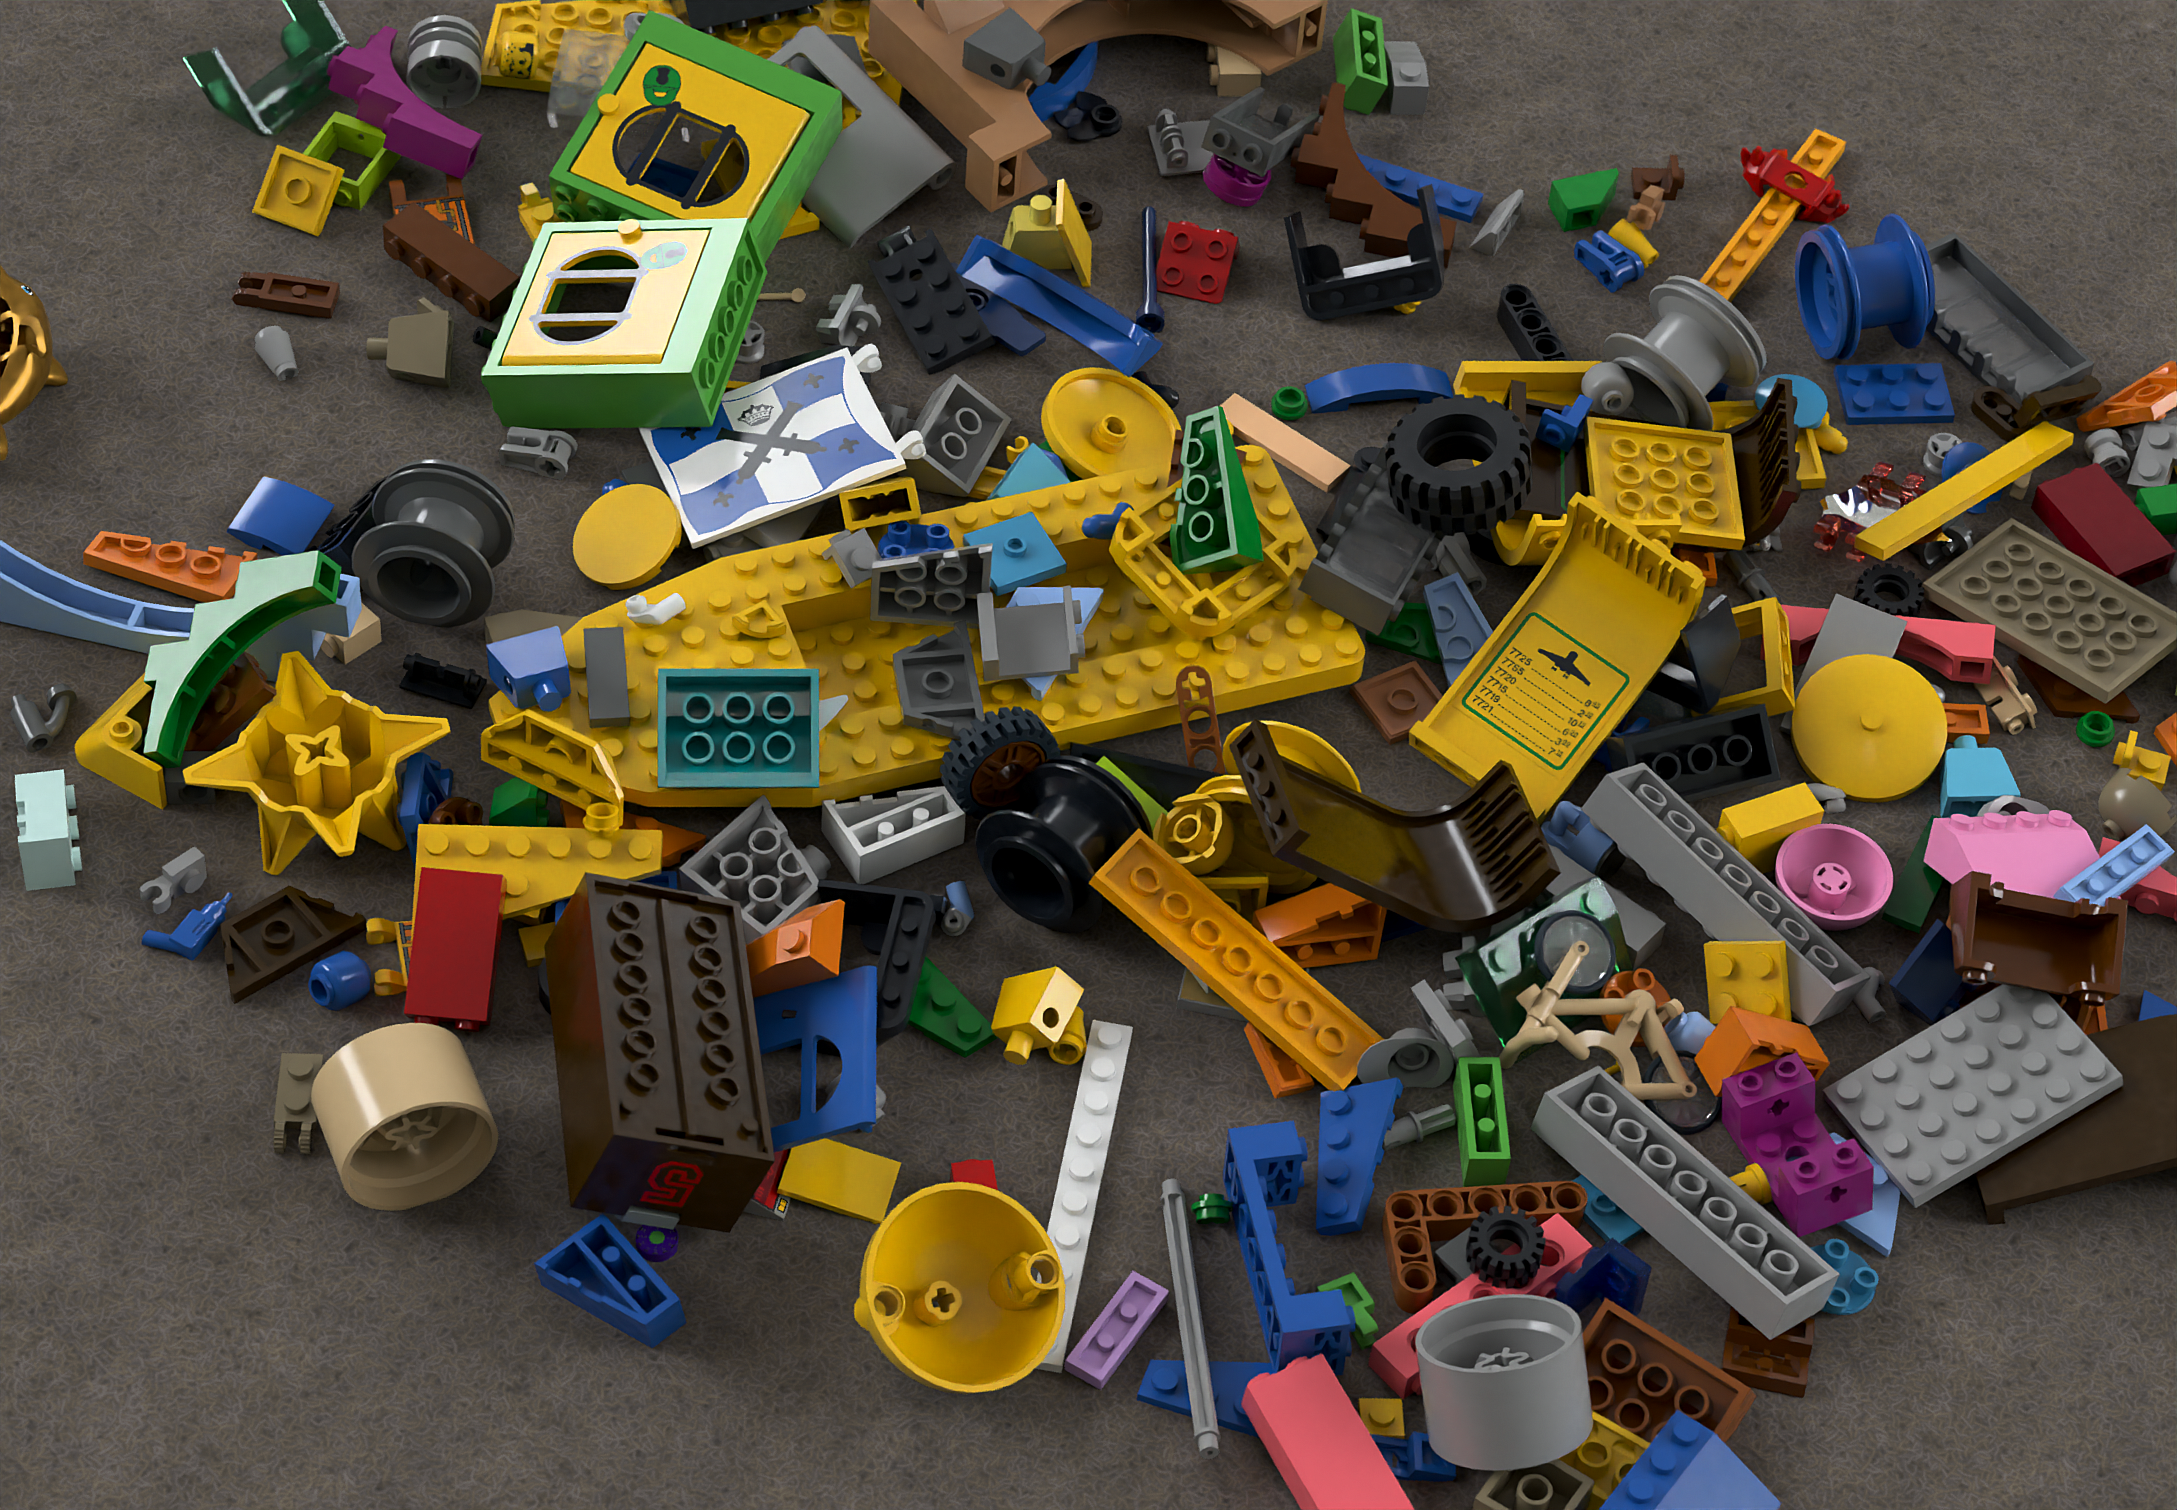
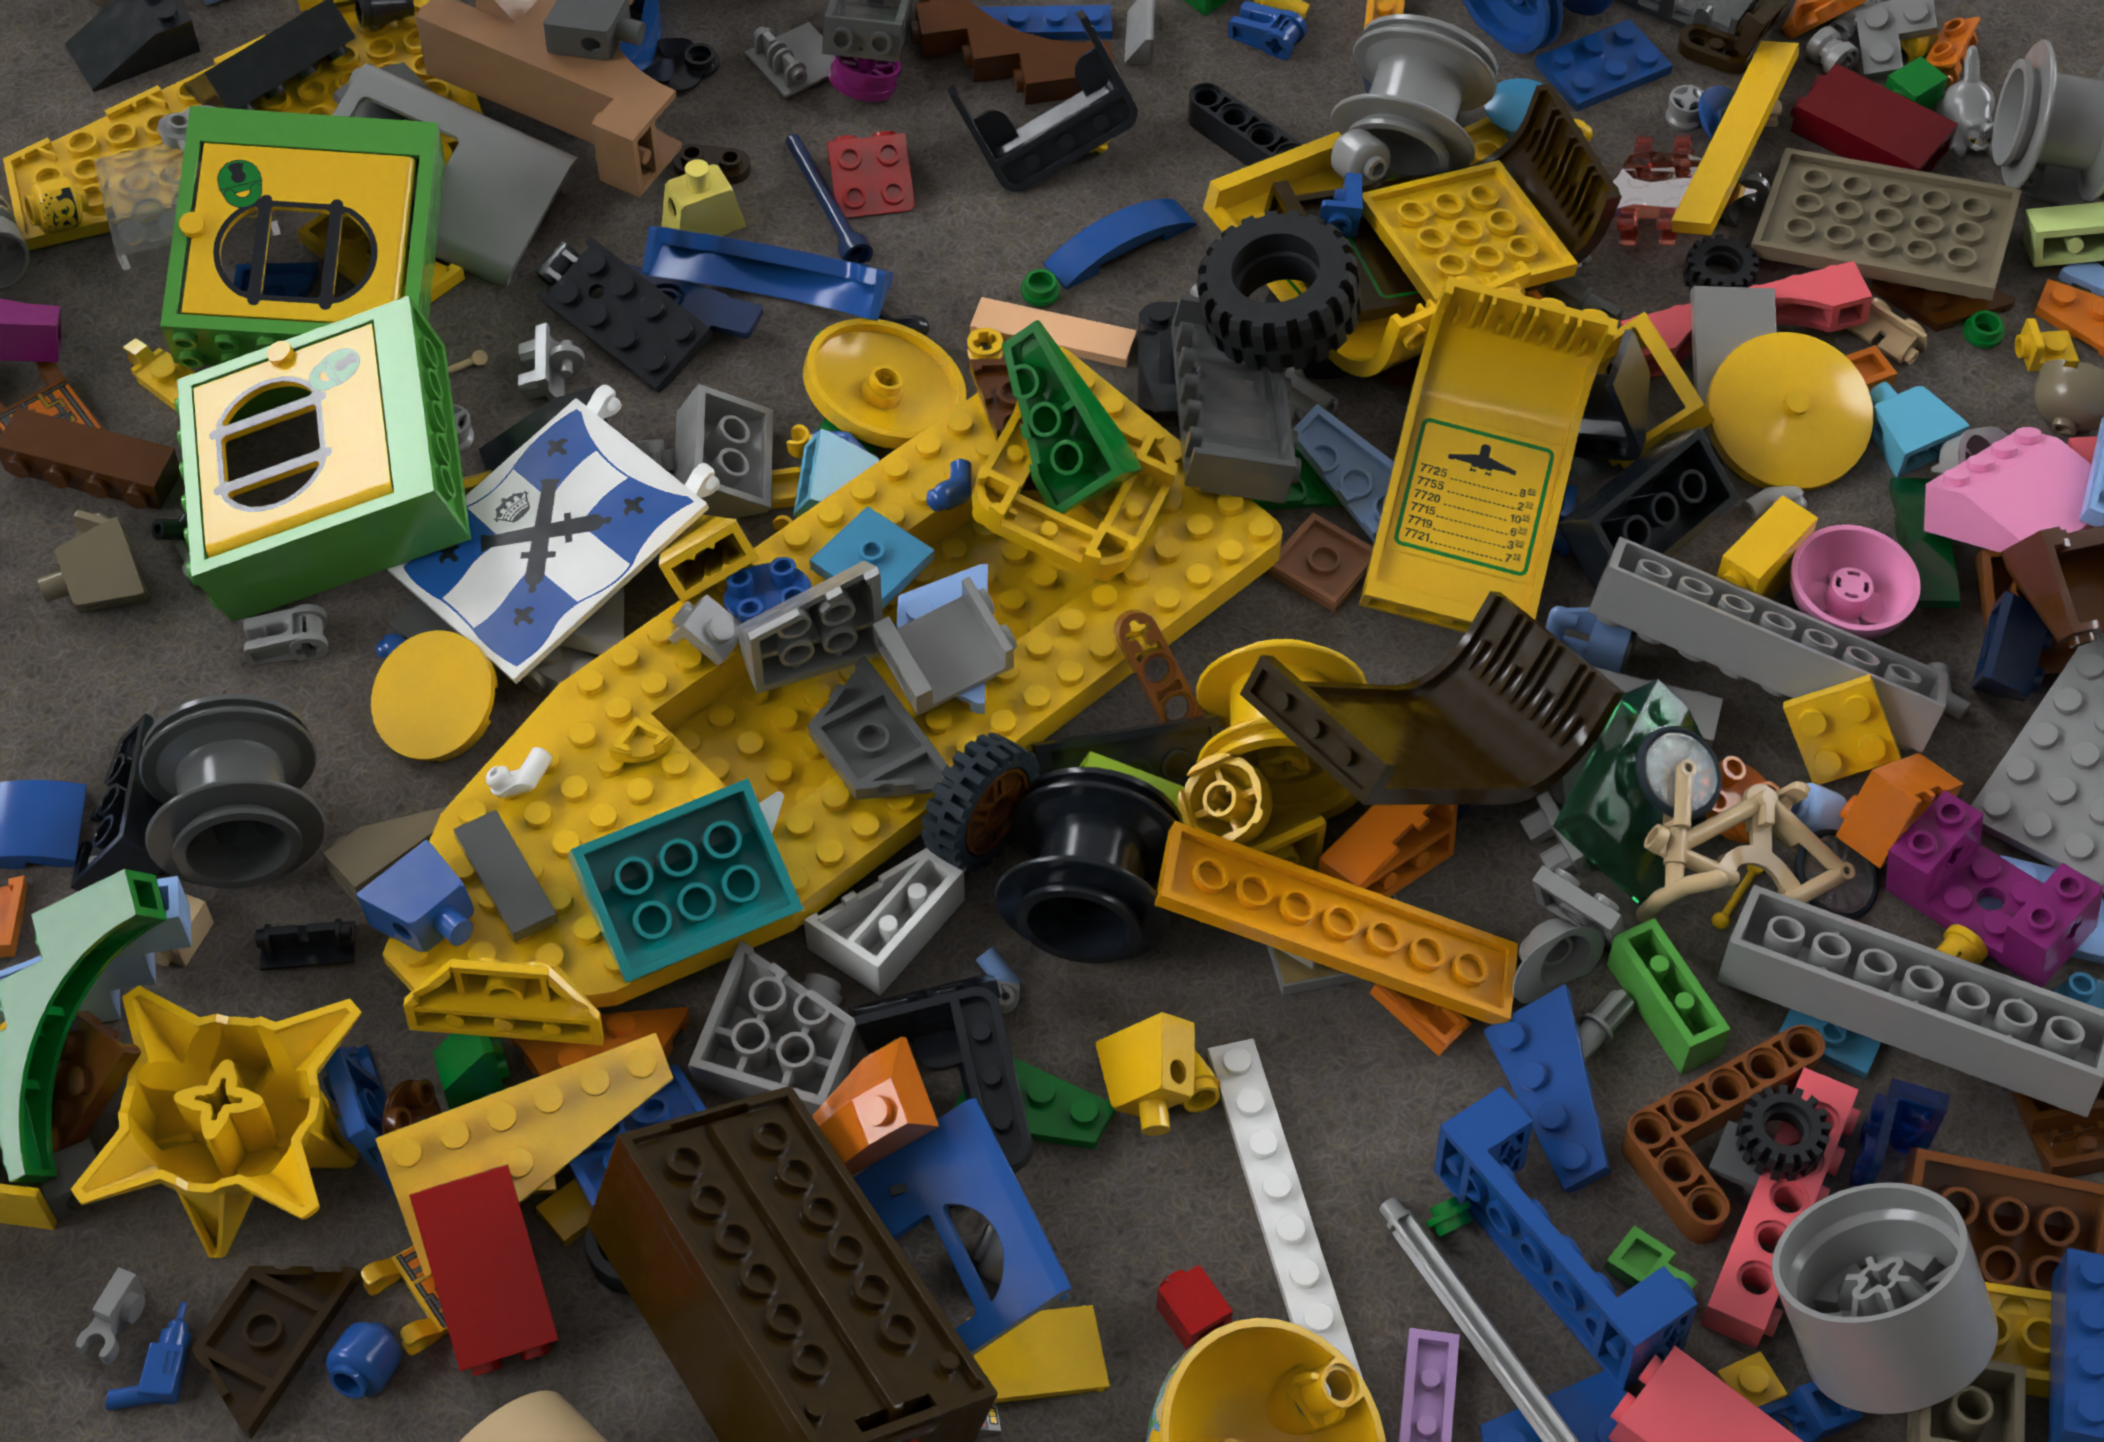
camera: 20 degrees left, 5 degrees up
(602, 819) = (587, 1049): yellow plate -> none
(1073, 233) = (738, 188): yellow piece -> none

